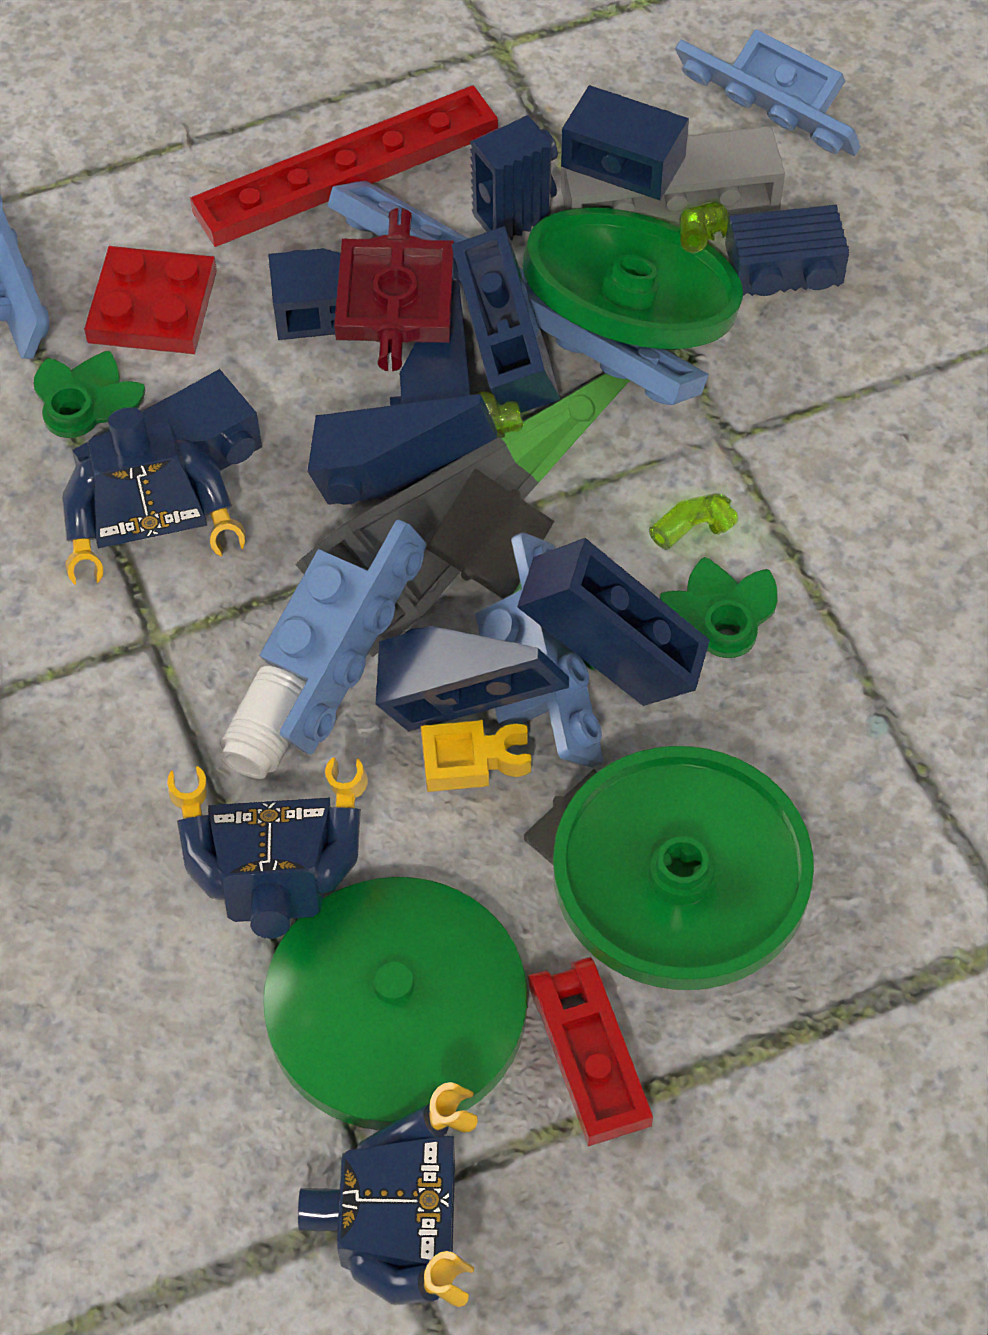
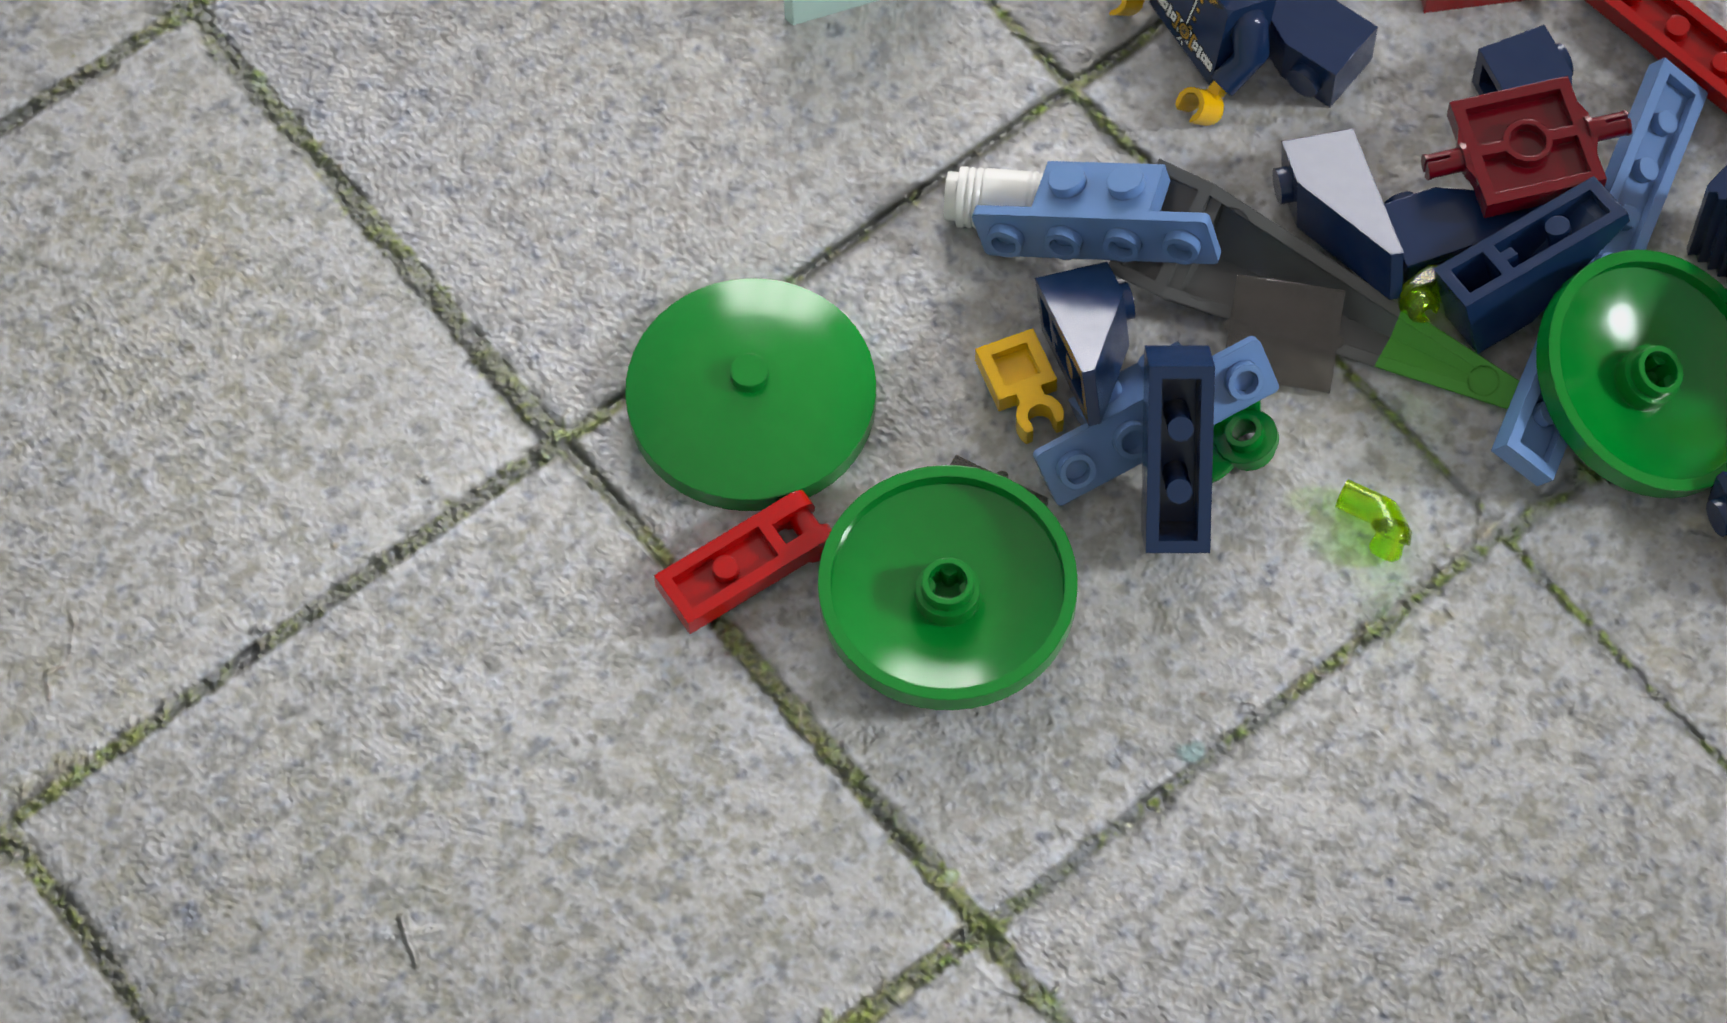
camera: 75 degrees right, 5 degrees up
(271, 855) = (849, 237): dark blue torso -> none
(399, 1205) = (546, 442): dark blue torso -> none
(718, 603) = (1281, 564): green plate -> none

